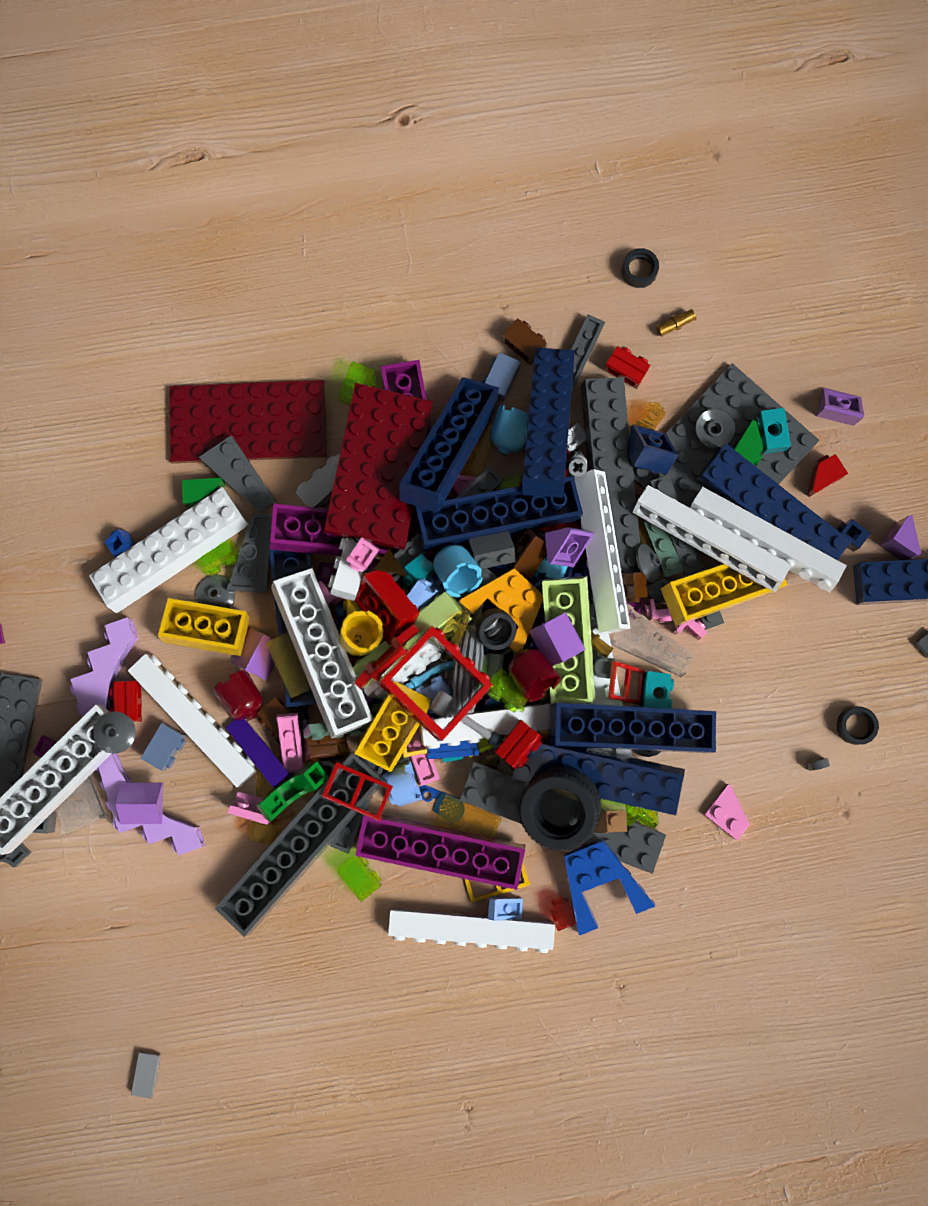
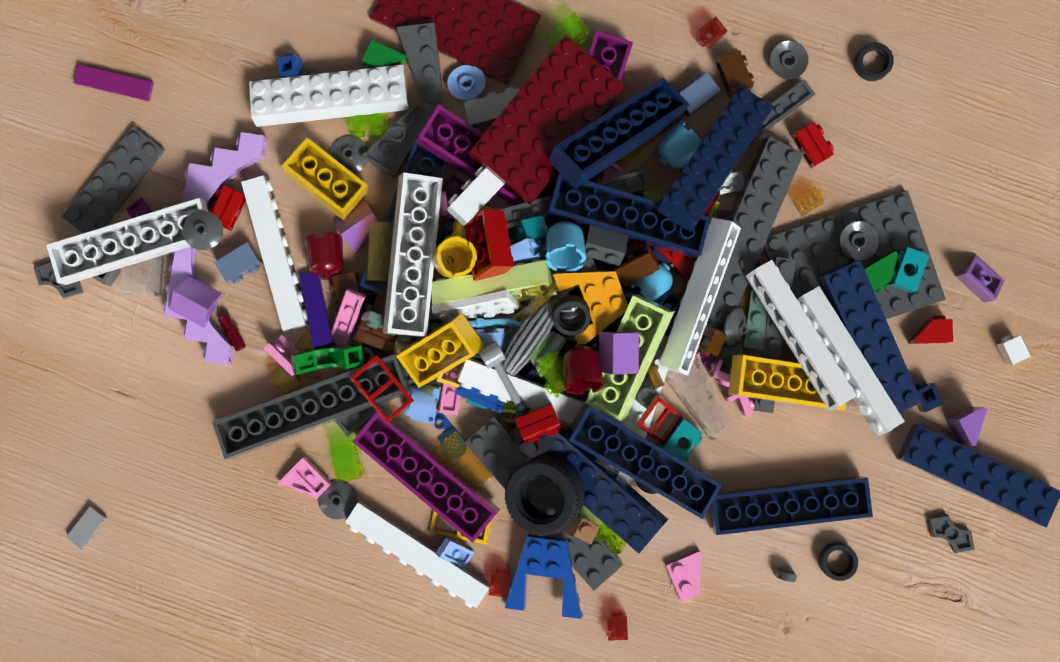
camera: 30 degrees right, 5 degrees up
(190, 814) = (232, 332): none -> dark red axle
(283, 469) = (466, 75): none -> light blue dish
(330, 914) = (306, 479): none -> bright pink wing
(362, 555) = (490, 191): bright pink bracket -> none
(374, 908) = (347, 497): none -> dark grey dish
(377, 668) = (455, 294): red bar -> none
(387, 563) = (509, 208): dark brown piece -> none
(411, 707) = (458, 330): red window -> none
(483, 311) = (713, 27): none -> clear red brick
(565, 296) = (795, 53): none -> dark grey dish
(566, 545) = (671, 275): medium lavender slope -> none
(577, 460) = (721, 208): light grey pin -> none
(651, 450) = (792, 229): dark blue slope -> none
(676, 322) = (878, 128): pearl gold pin -> none
(692, 895) = (617, 625): none -> clear red brick
(787, 697) = (791, 505): none -> dark blue brick
(903, 452) = (1012, 349): none -> white brick

